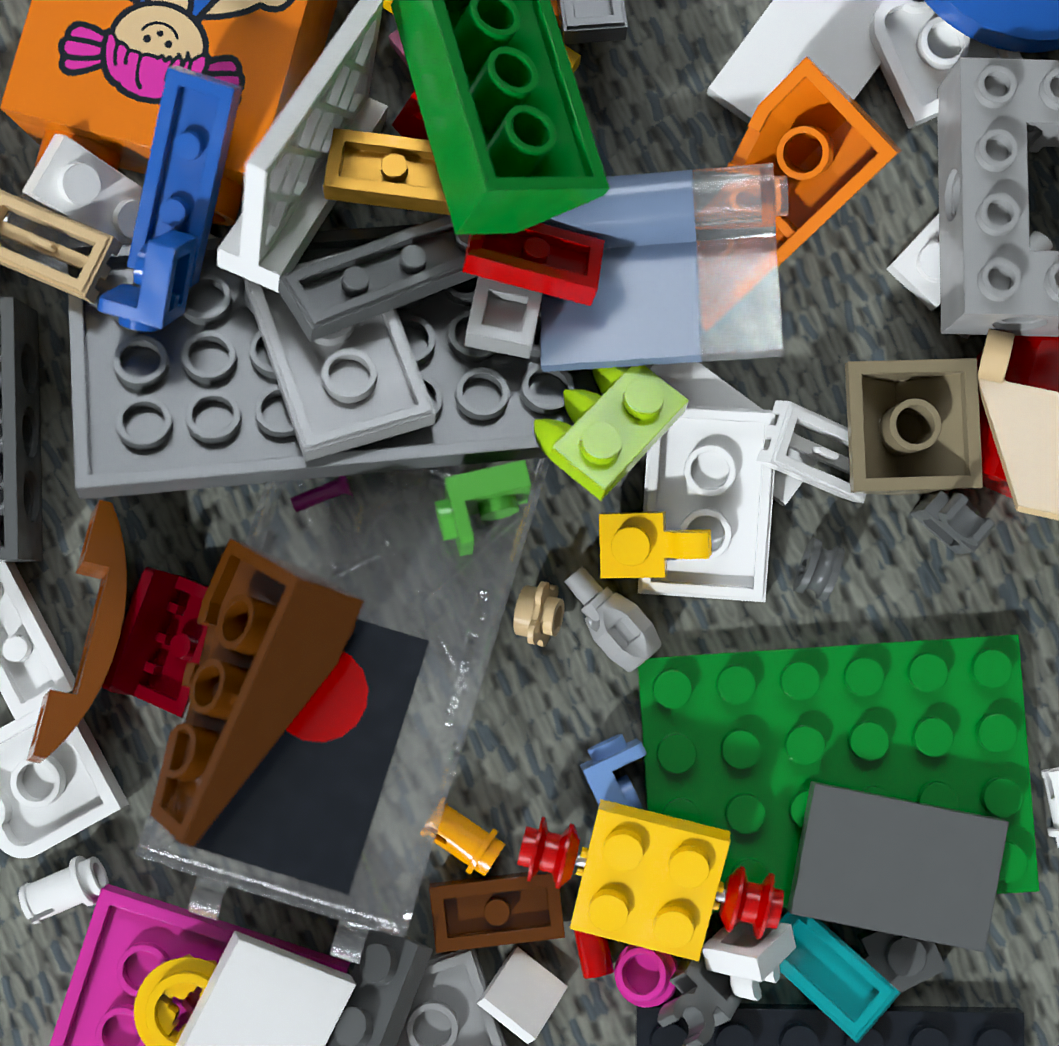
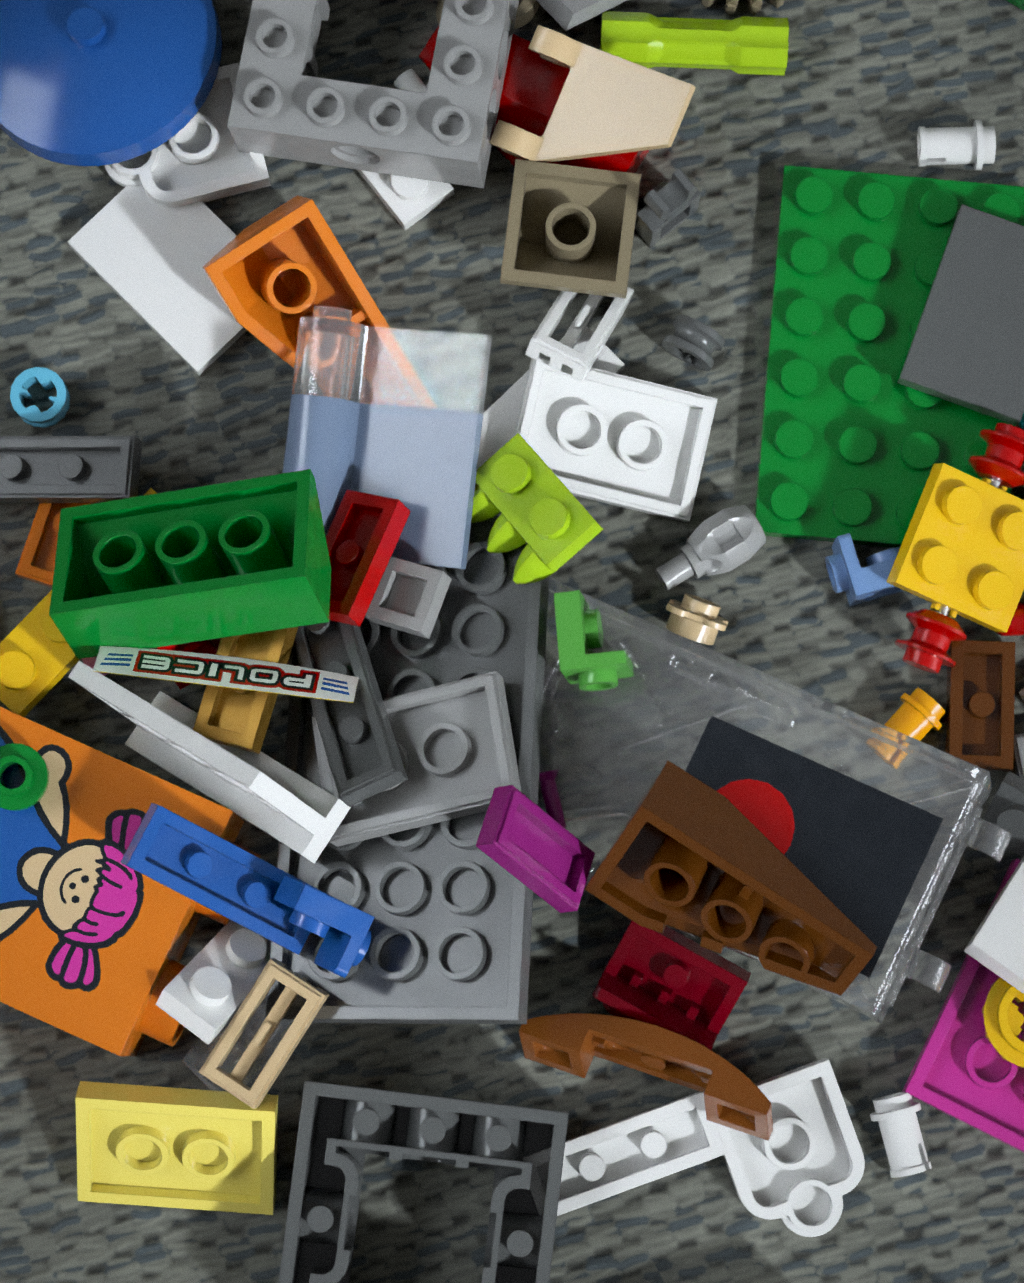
camera: 80 degrees left, 5 degrees down
(255, 479) = (535, 849): none -> magenta tile
(392, 146) = (226, 672): none -> sticker
(640, 544) = (643, 509): yellow plate -> none

